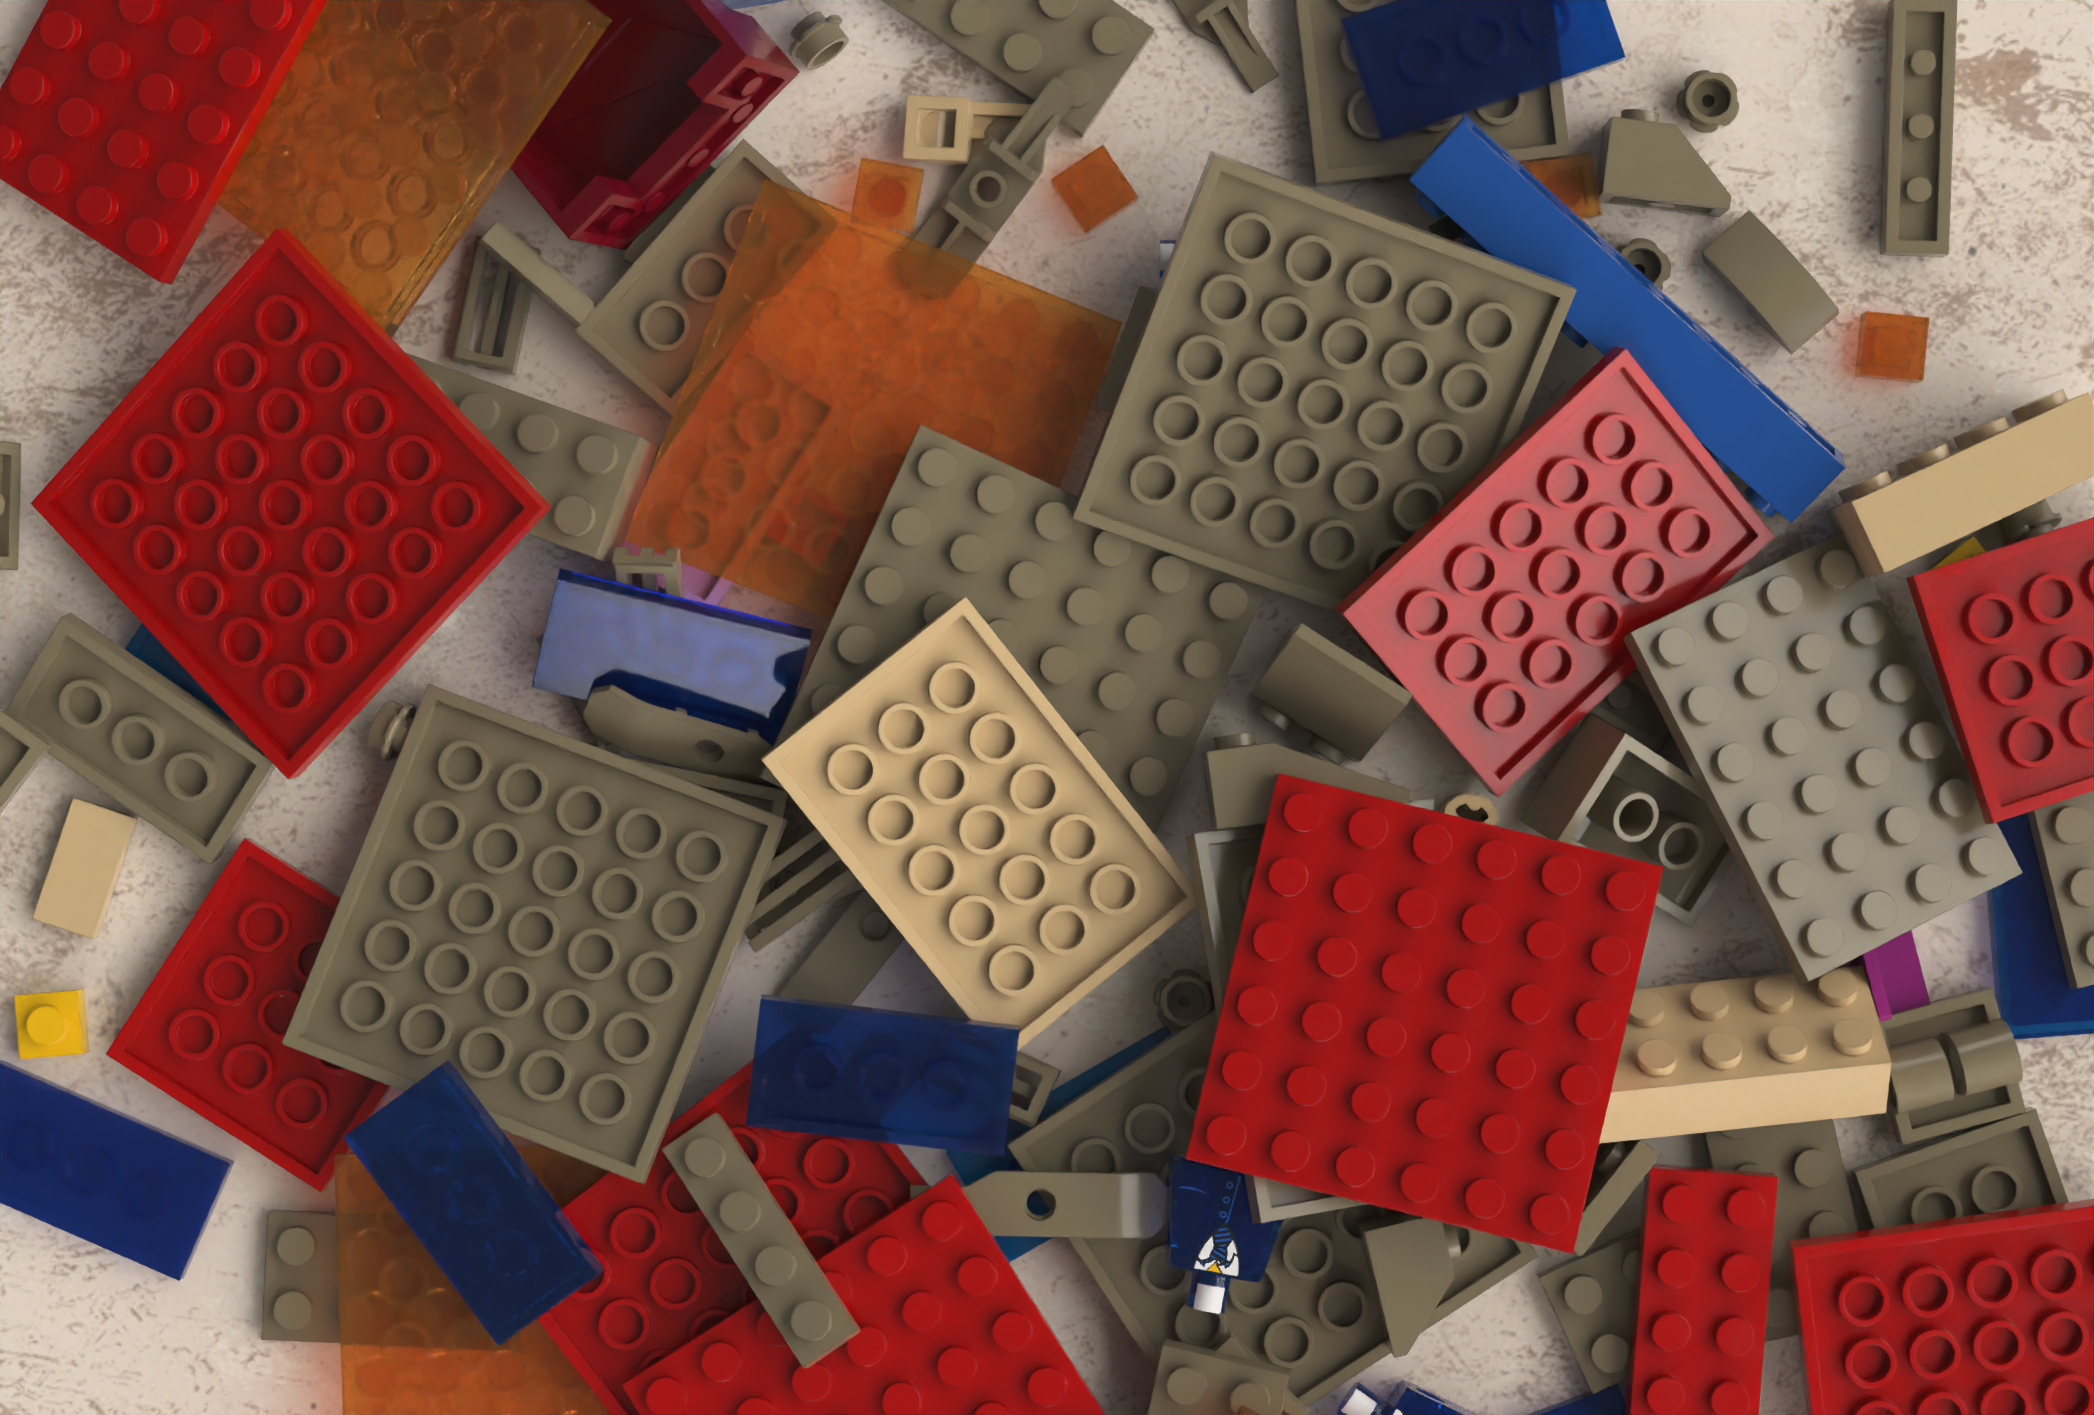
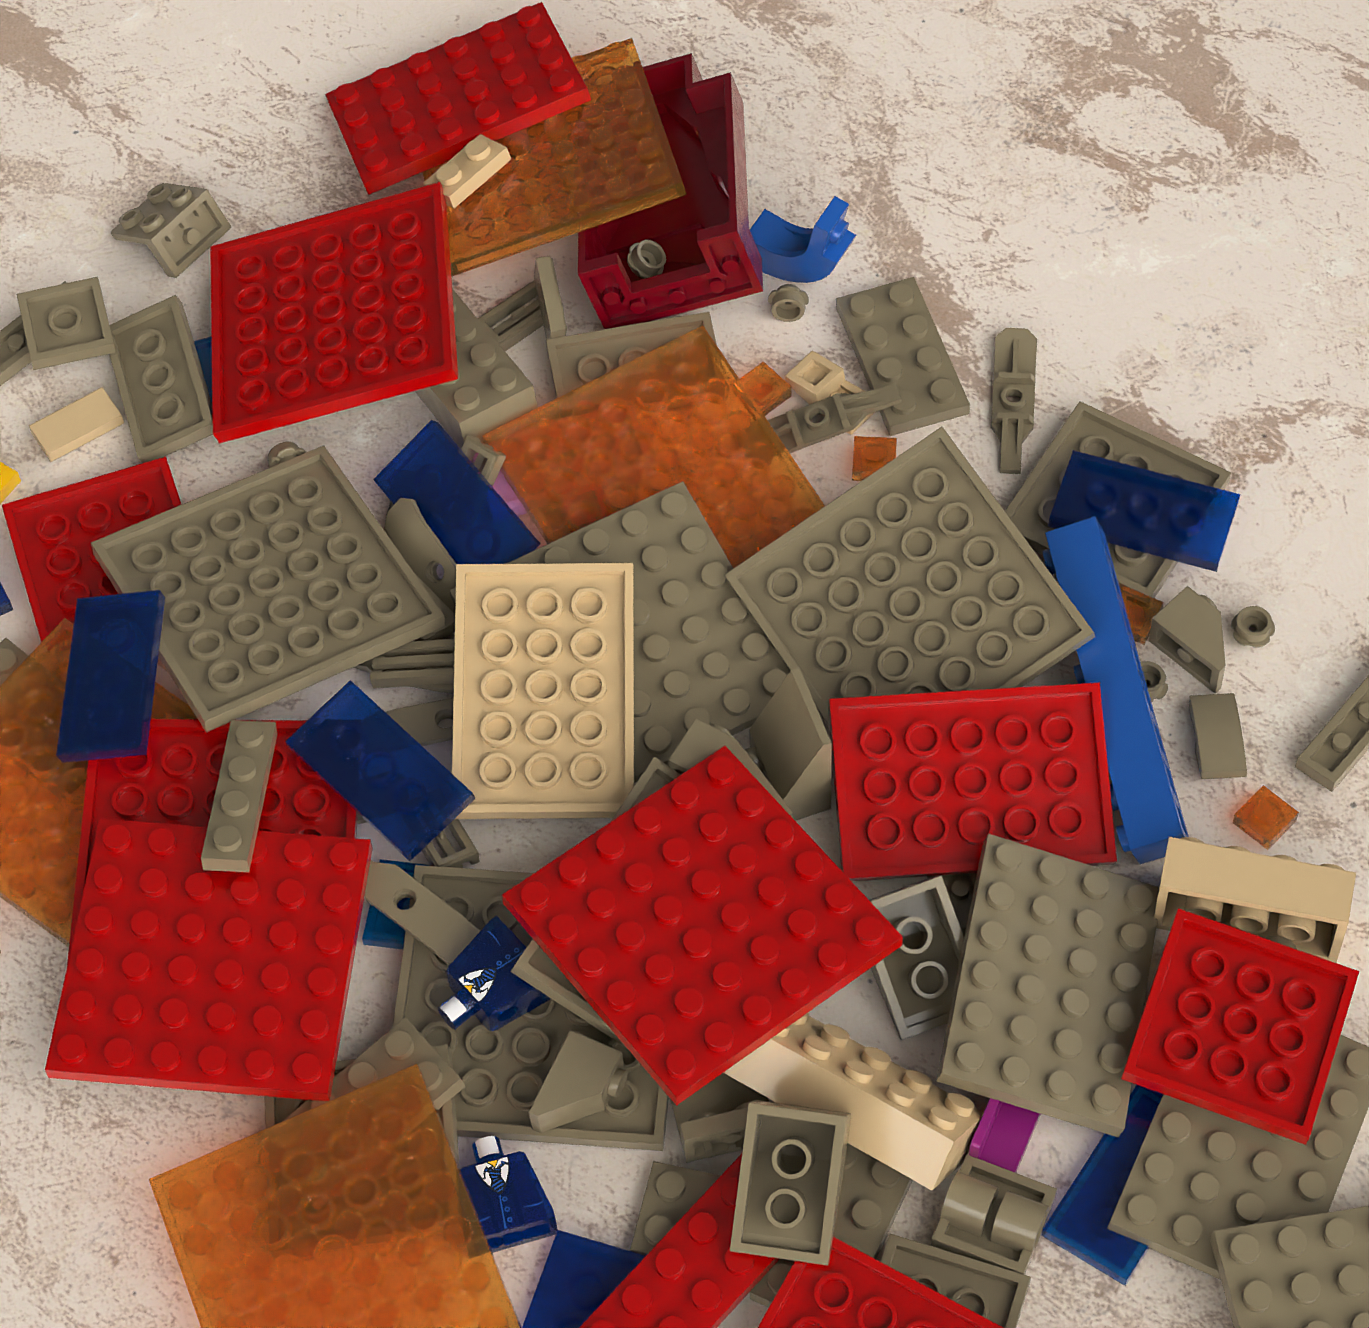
camera: 45 degrees right, 30 degrees down
(286, 172) = (469, 169): none -> tan plate
(613, 110) = (646, 259): none -> dark tan plate
(1740, 1224) = (790, 1181): none -> dark tan slope

